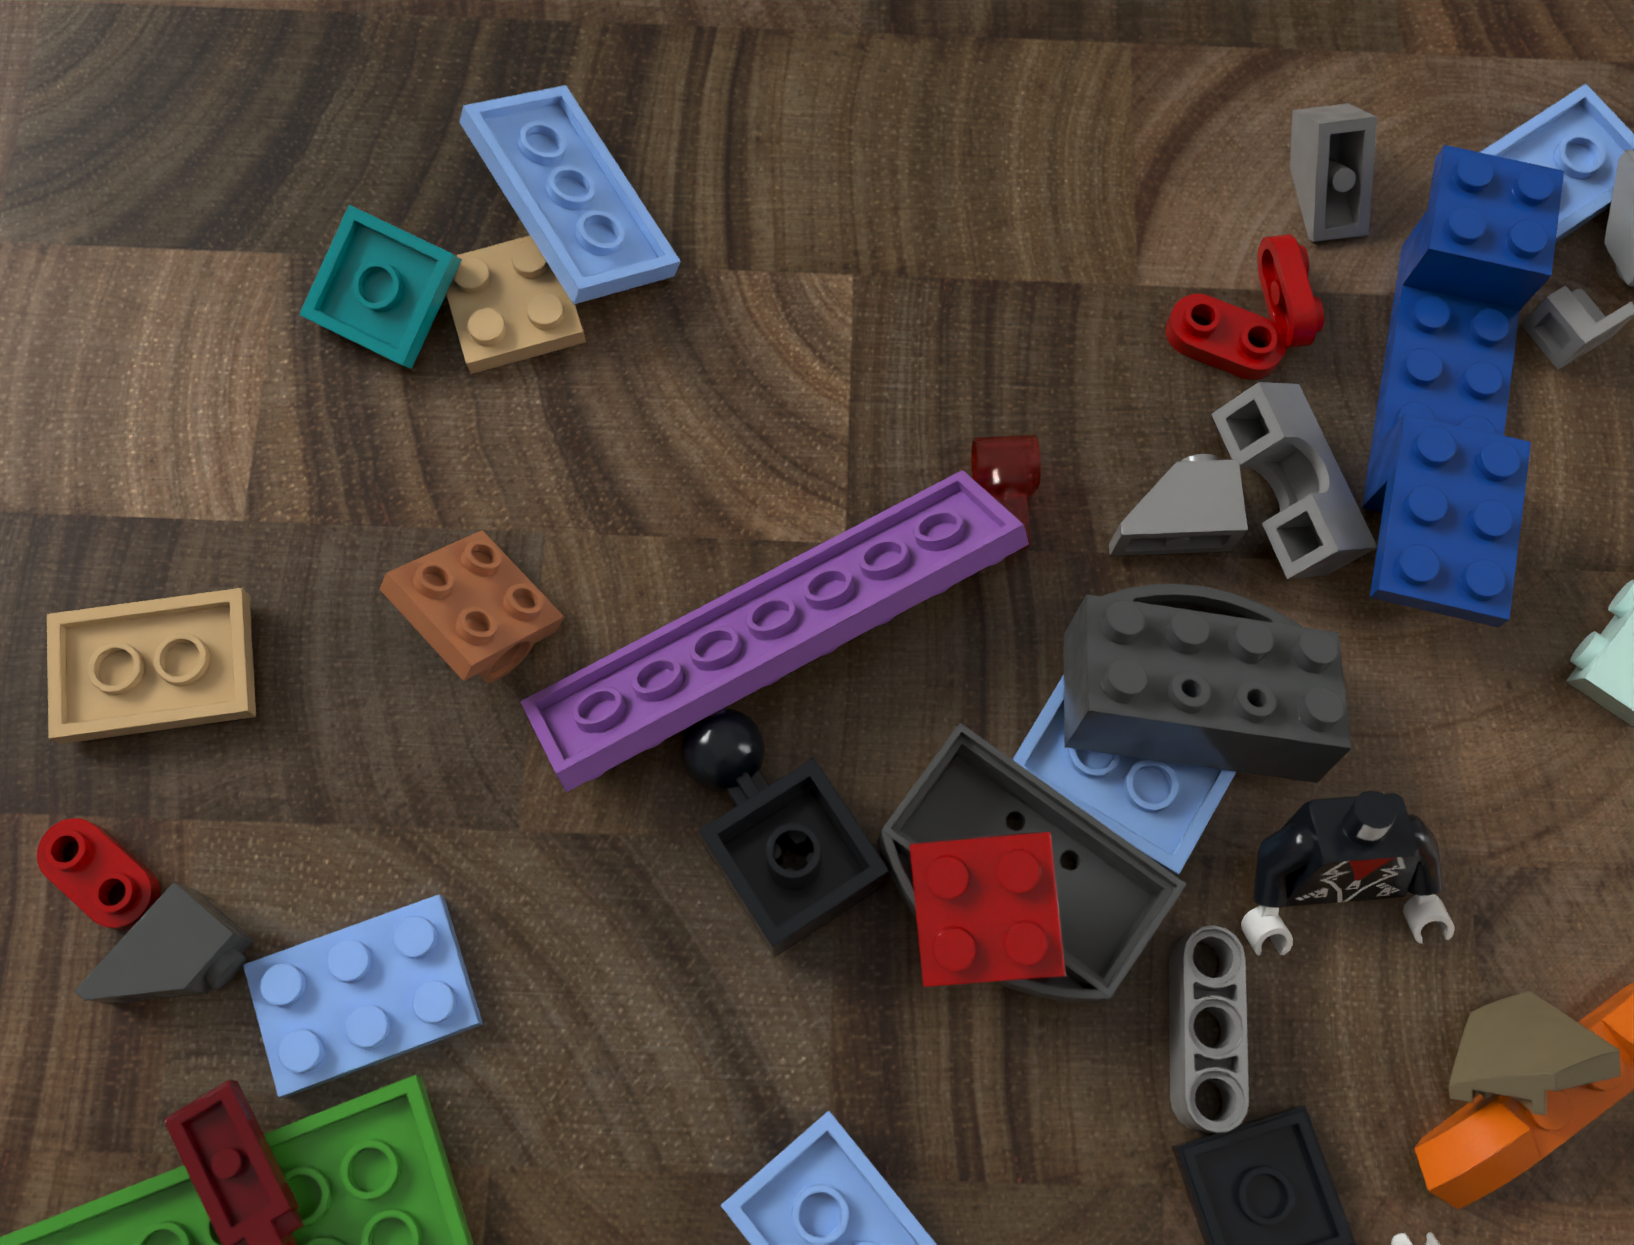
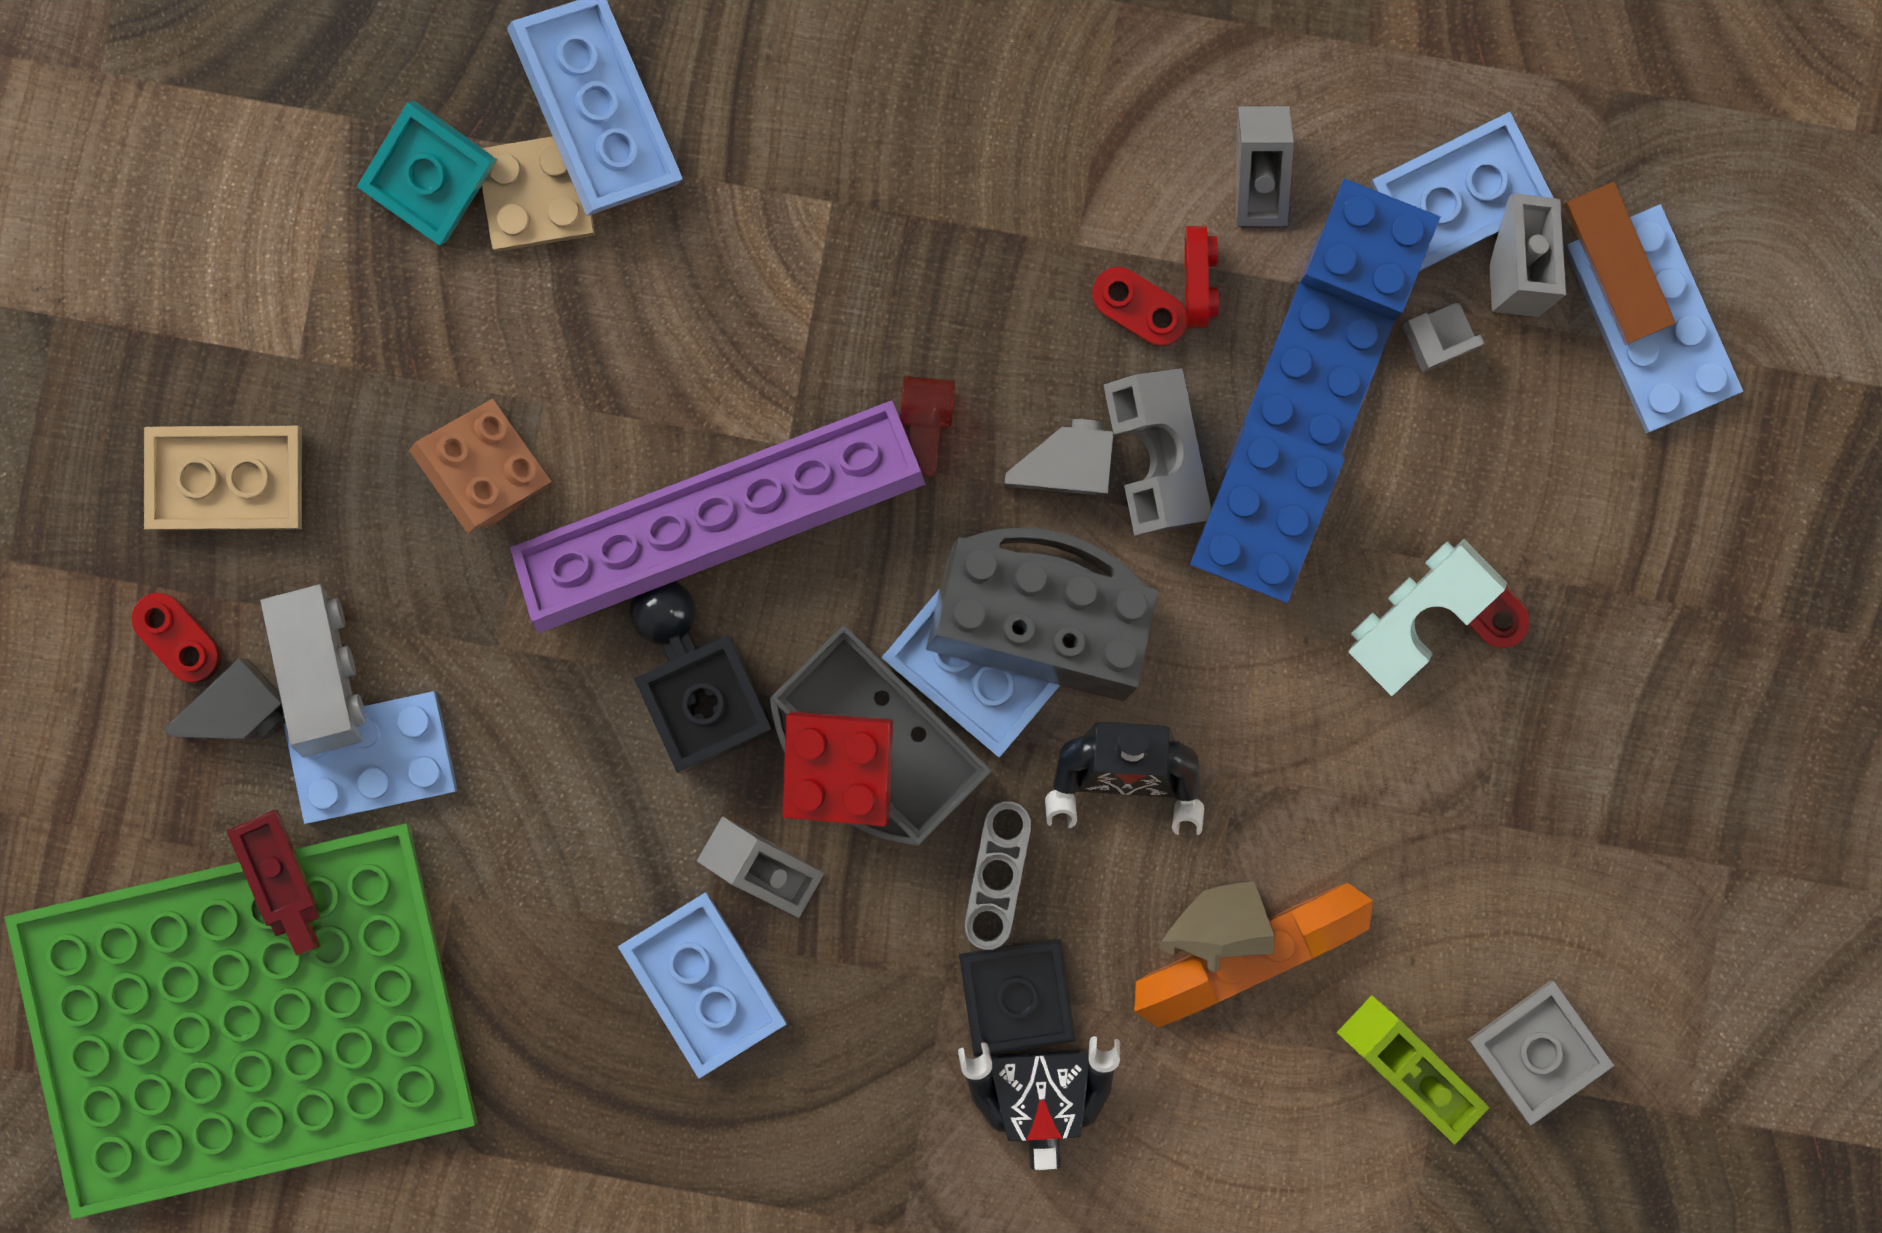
camera: 20 degrees right, 15 degrees up
(275, 887) = (313, 670): none -> light grey brick
(895, 1064) = (760, 867): none -> light grey slope

